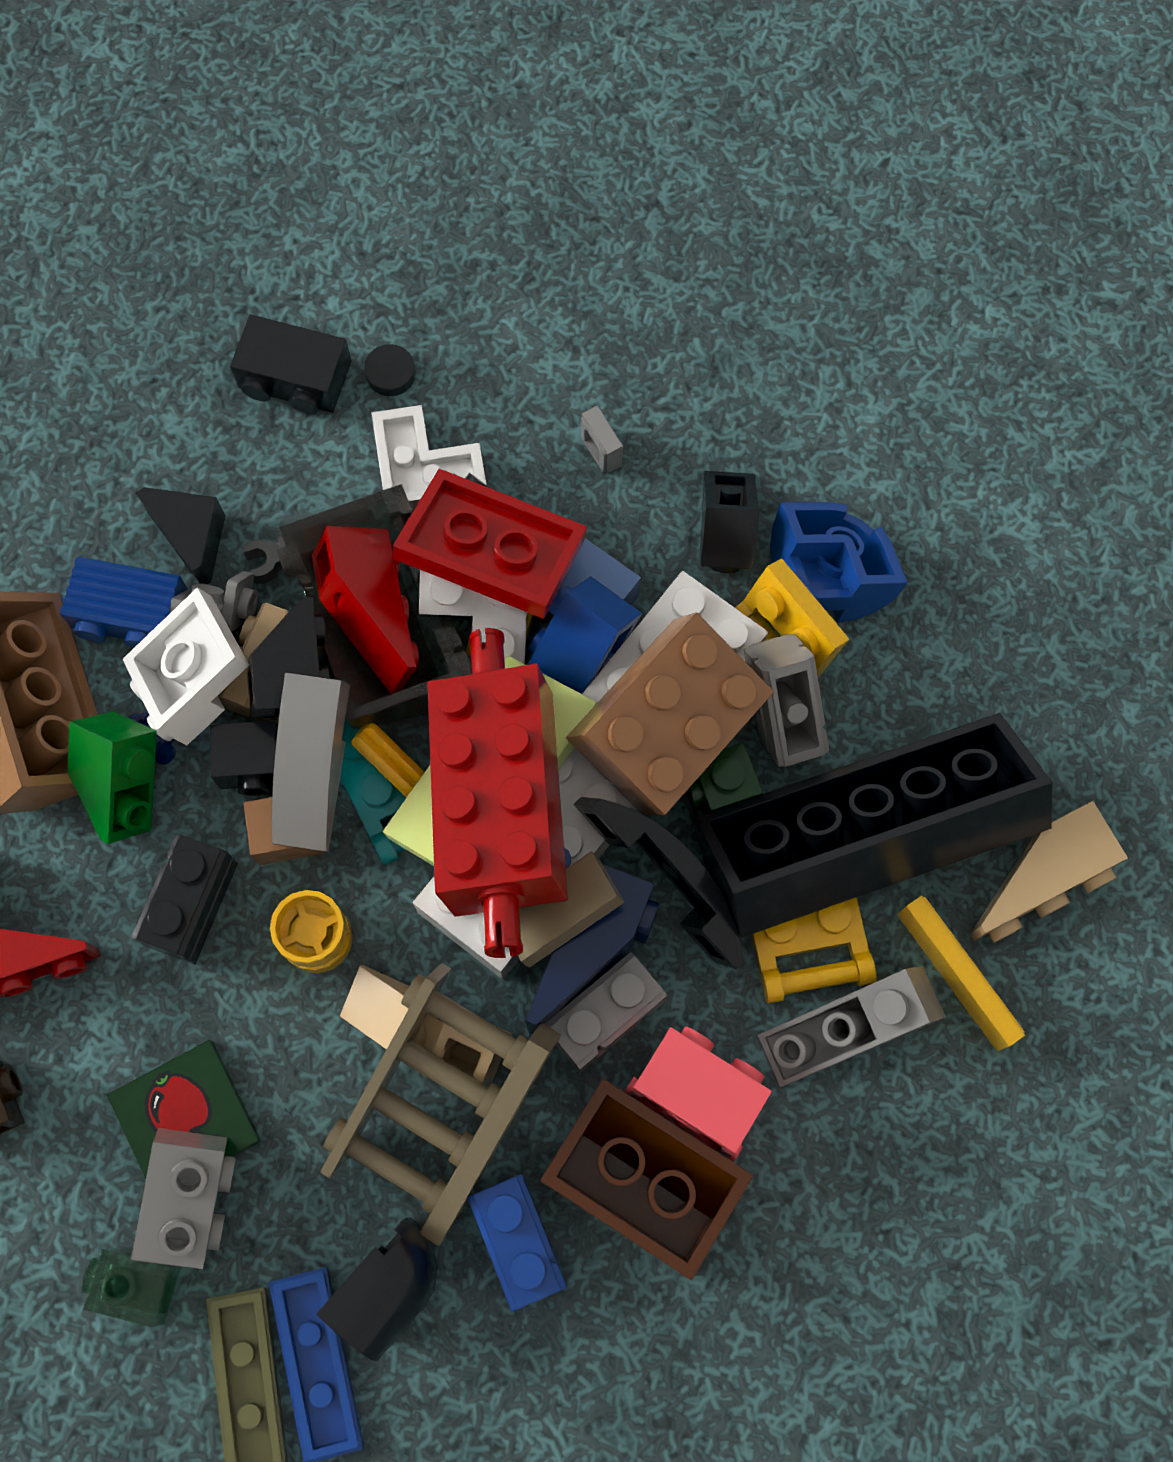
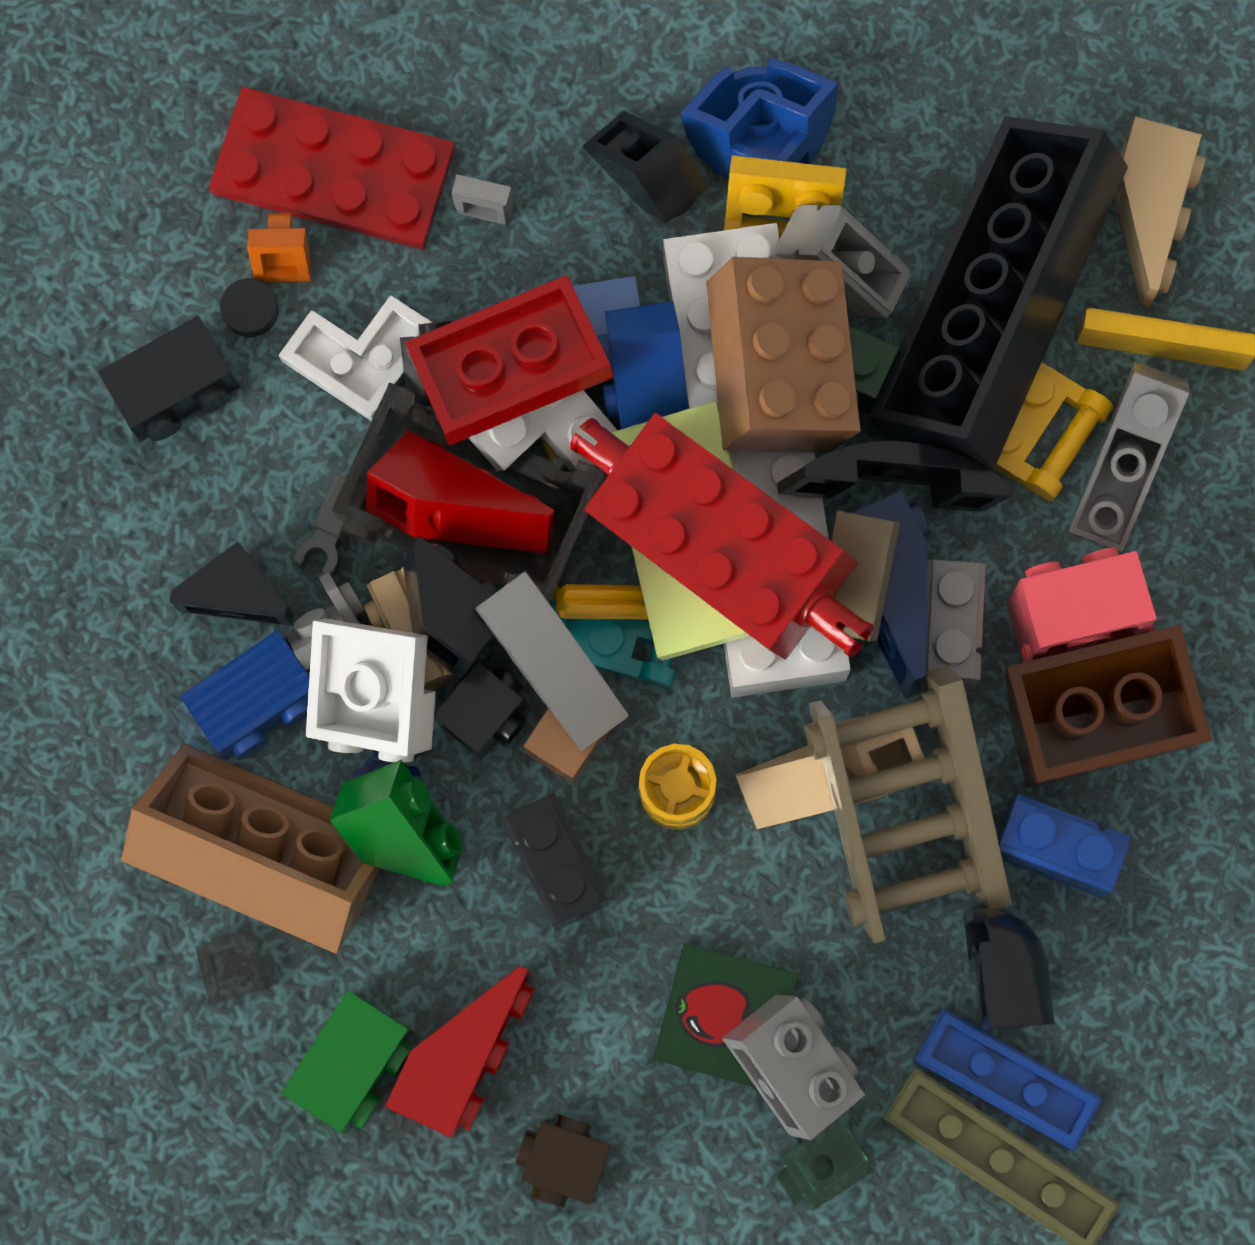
camera: 40 degrees left, 5 degrees up
(442, 351) = (279, 251): none -> orange tile
(533, 336) = (332, 168): none -> red plate

